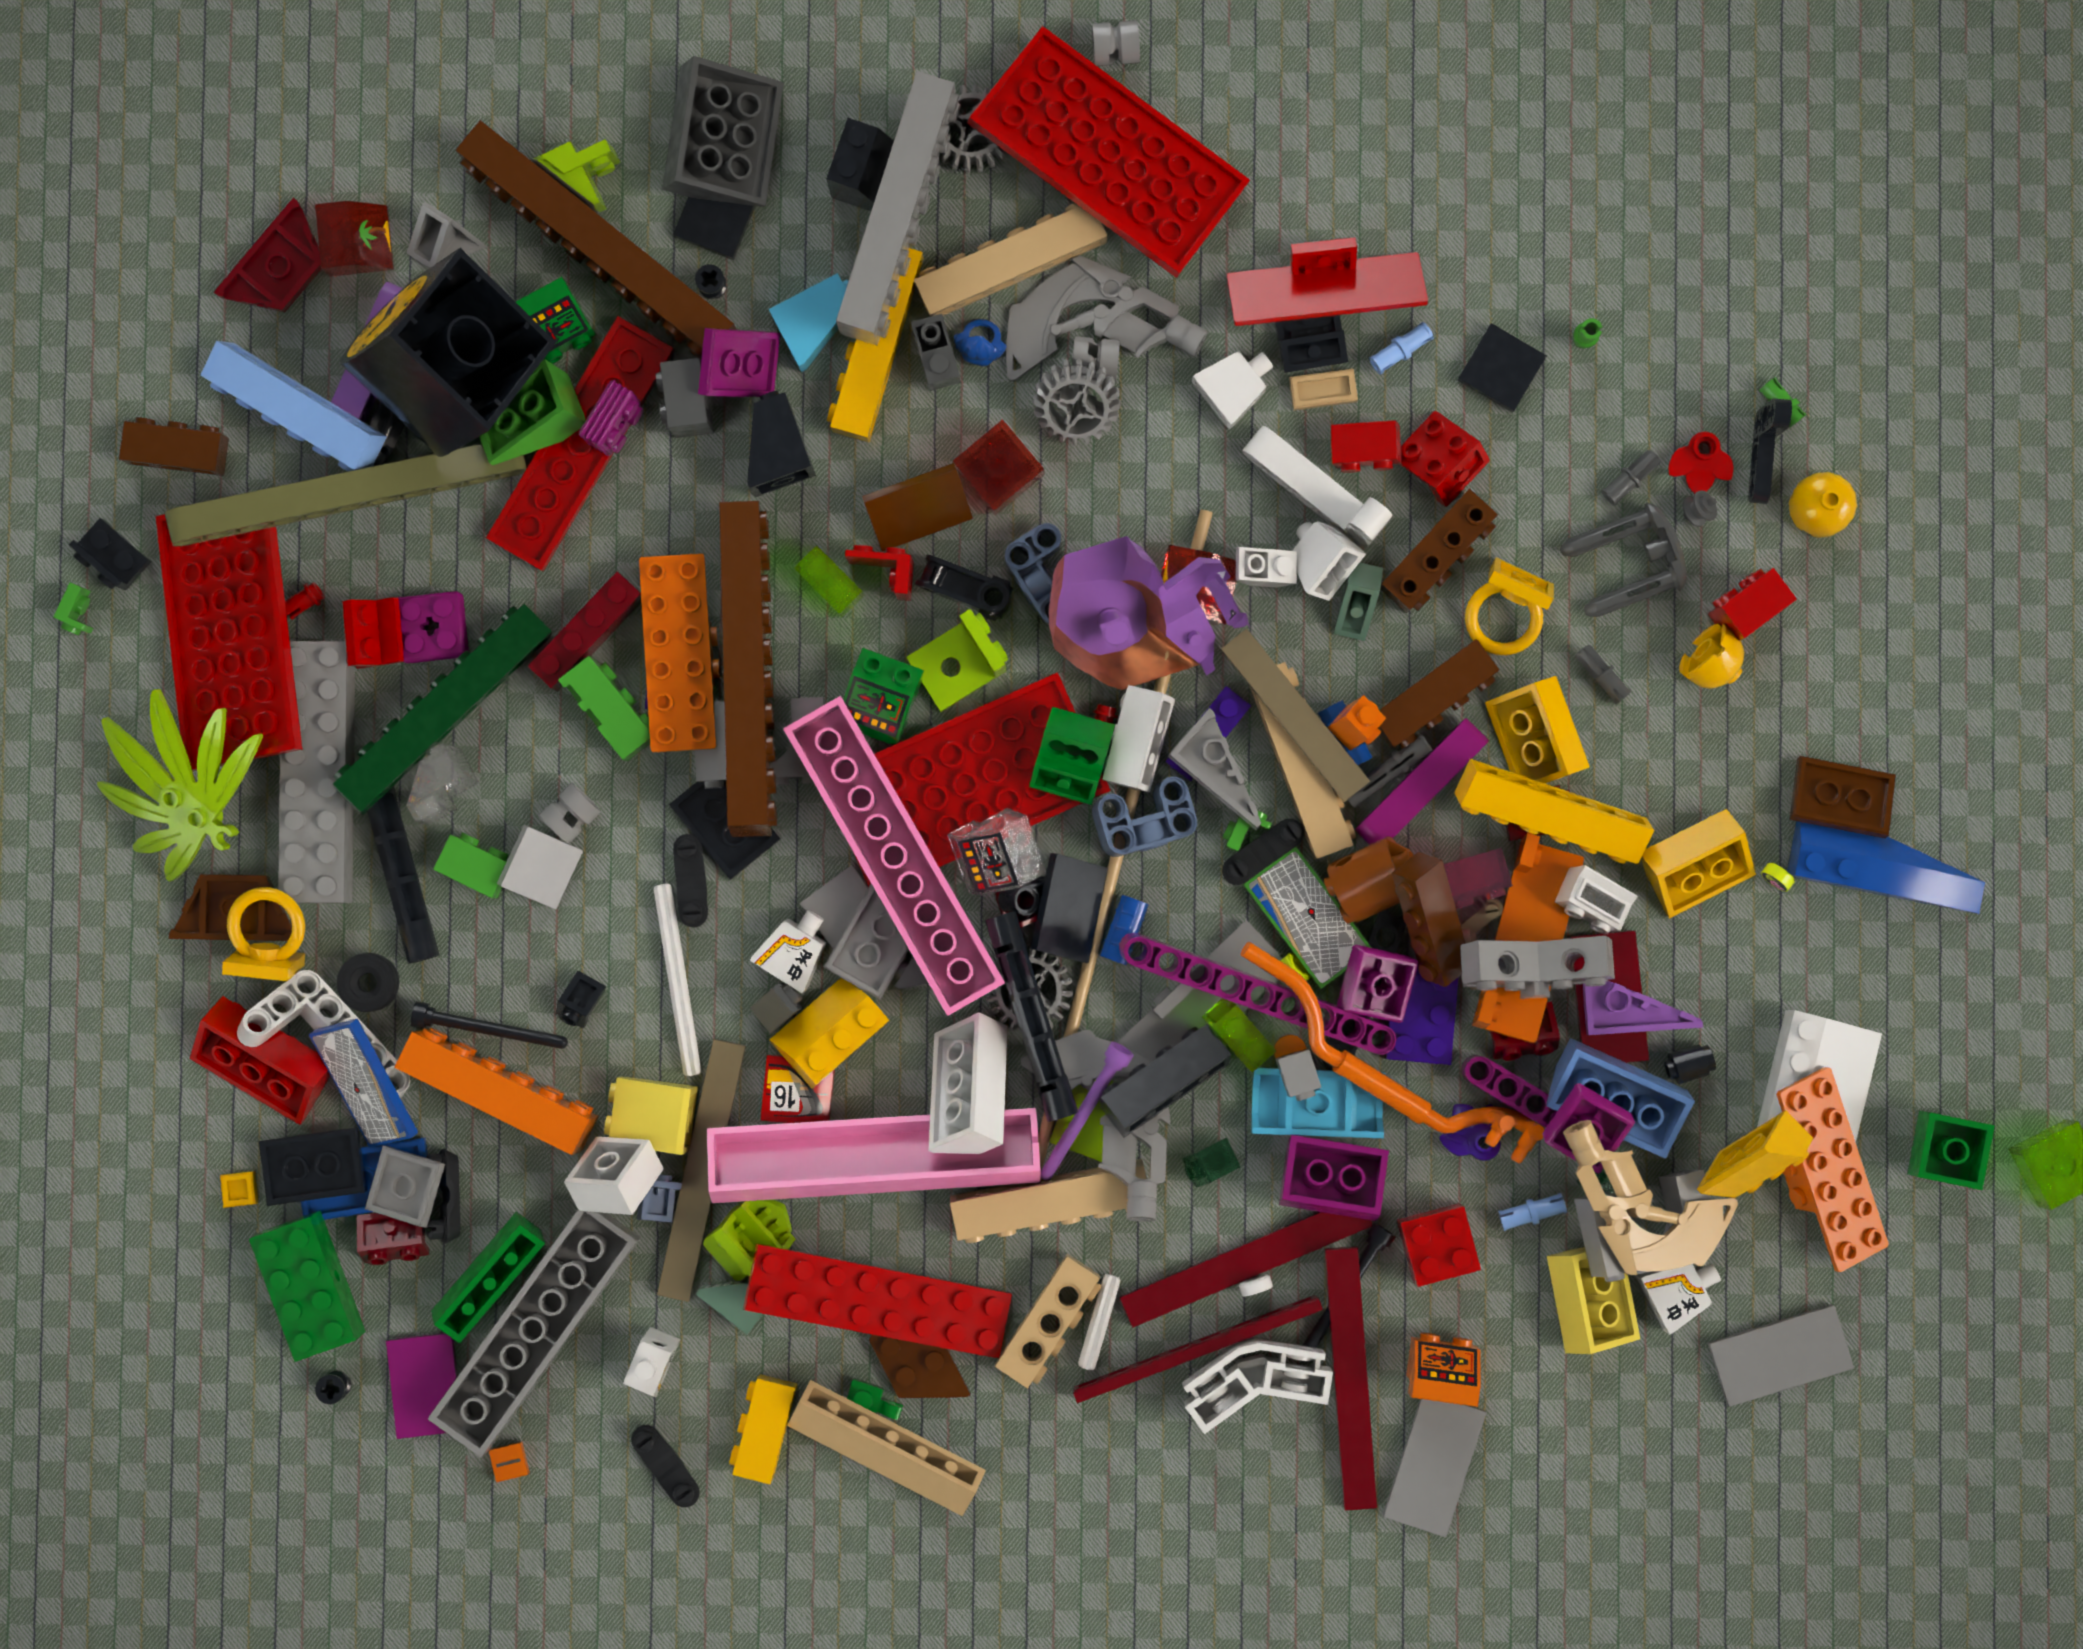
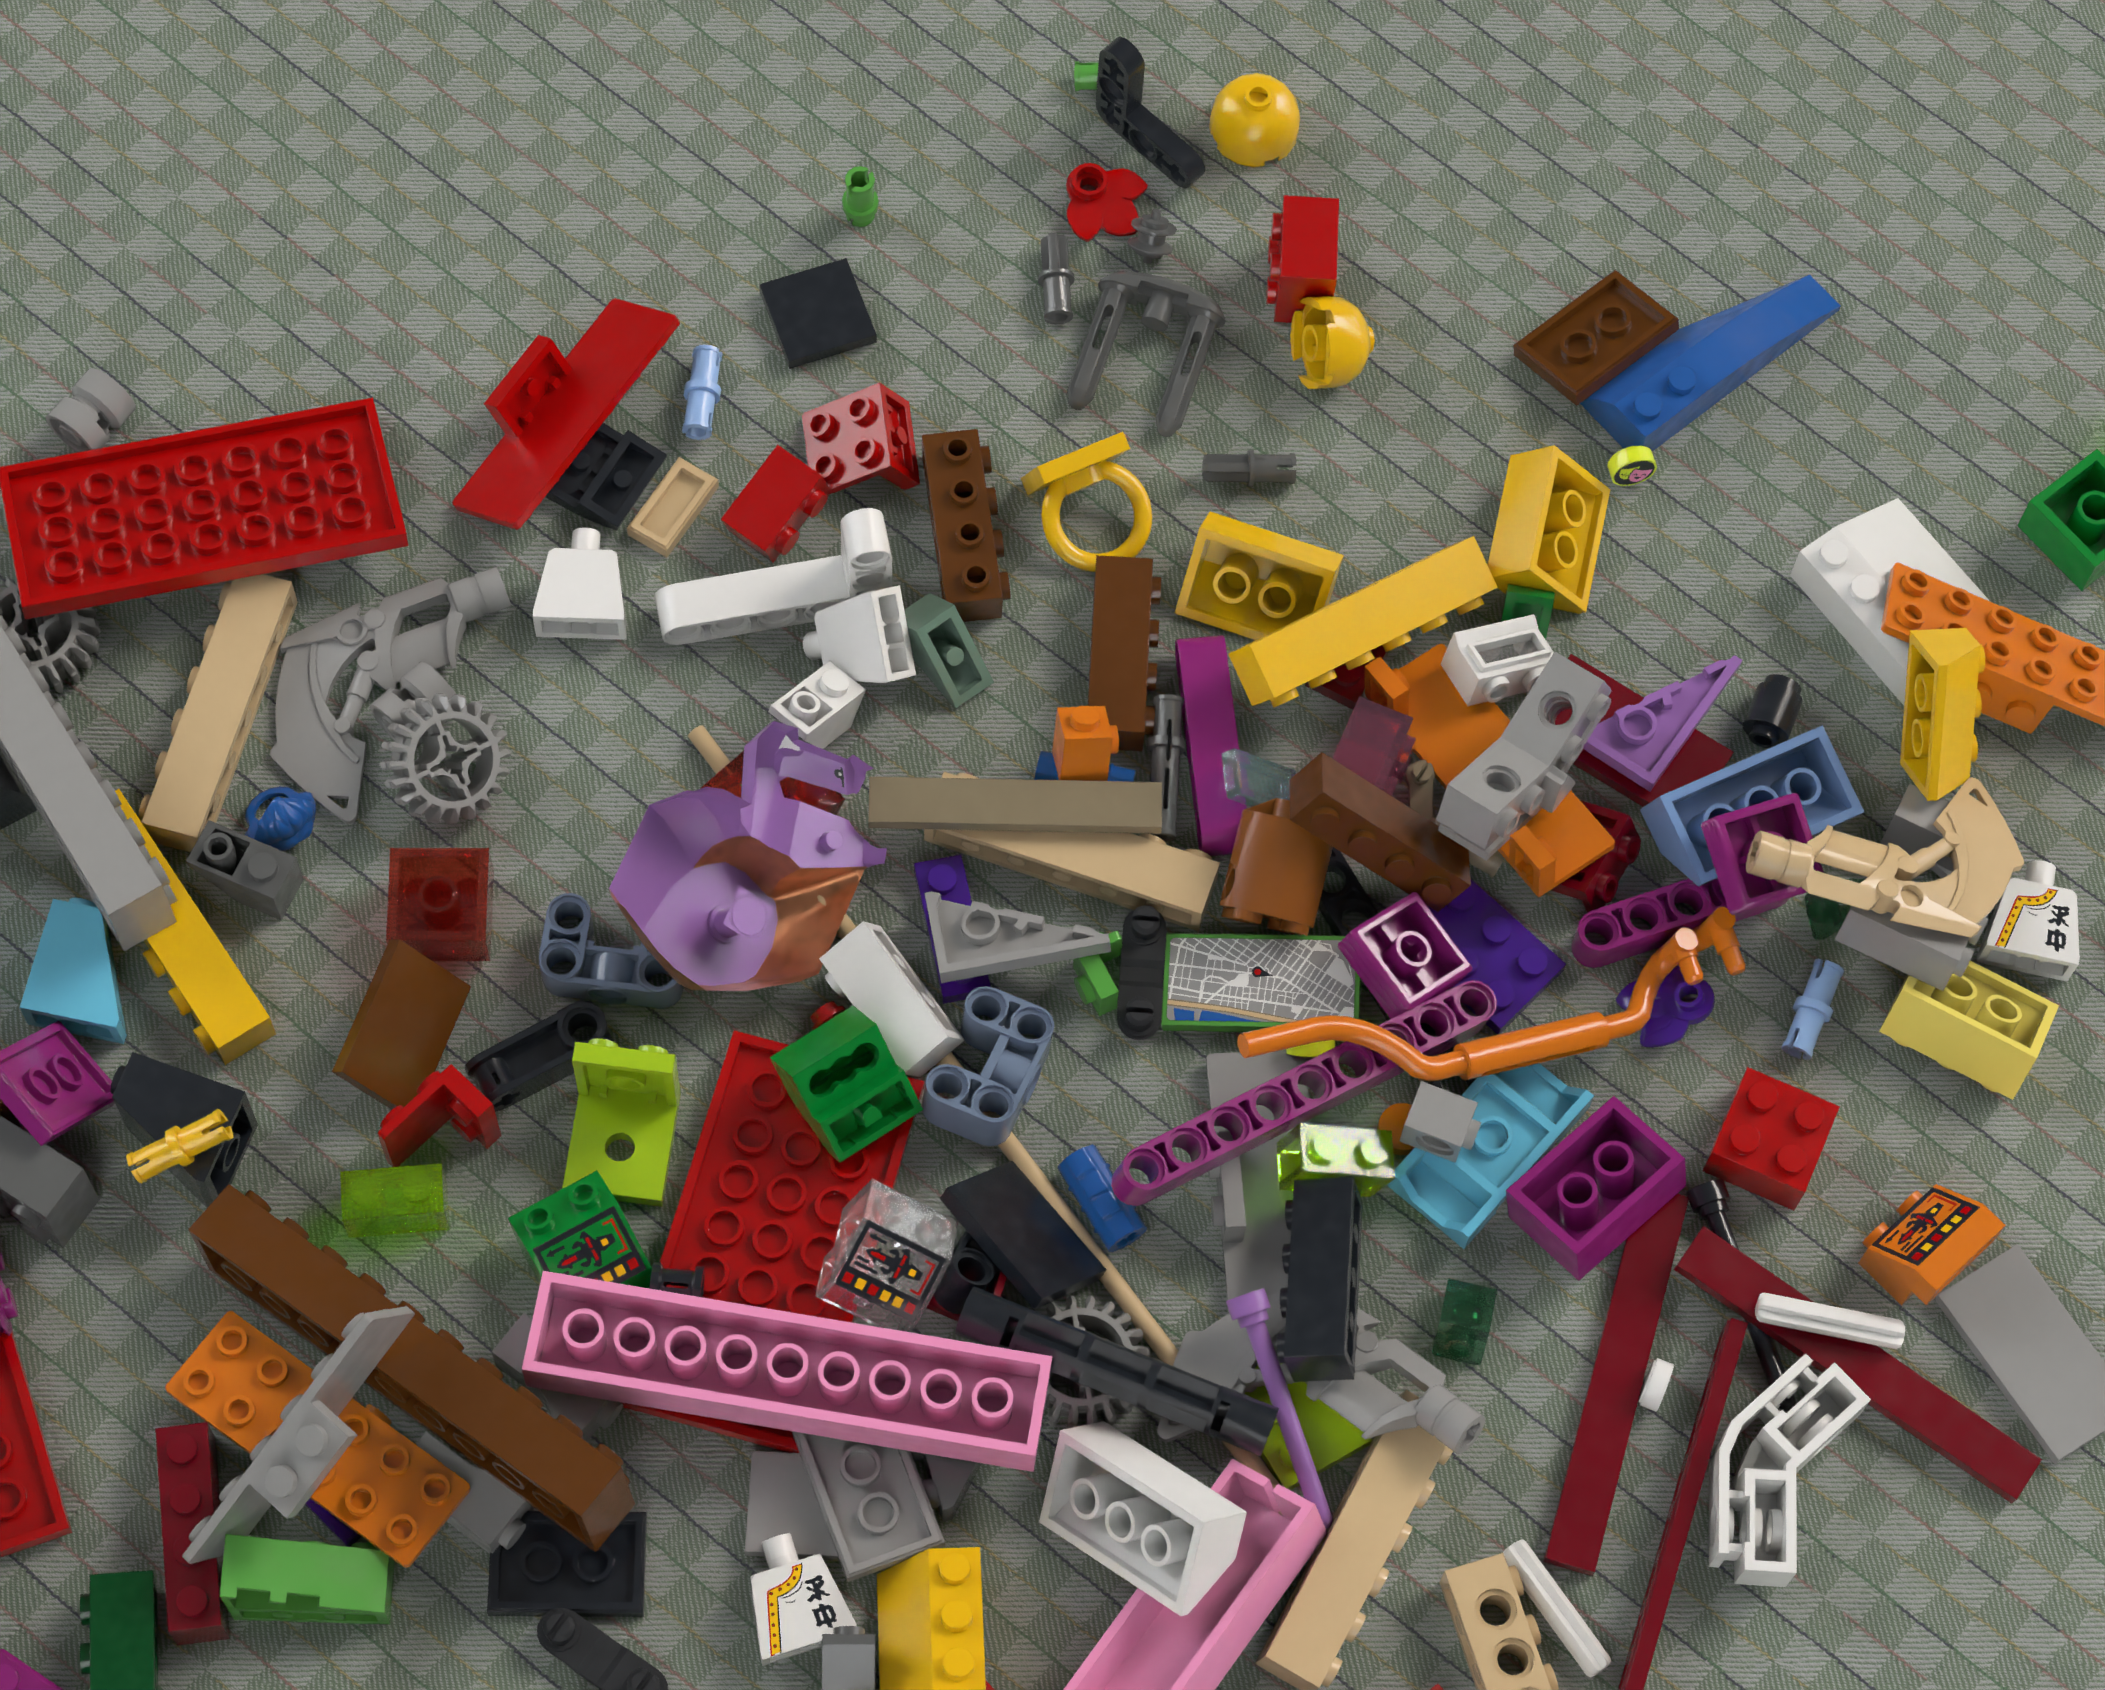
camera: 60 degrees left, 20 degrees down
(653, 663) = (307, 1442): none -> light grey bracket
(754, 461) = (179, 1146): none -> yellow pin
(897, 761) = (678, 1277): none -> black bush
(1358, 1350) = (1830, 1320): none -> white axle
(1417, 829) = (1254, 779): none -> clear light blue tile
(1641, 885) = (1526, 601): none -> green plate

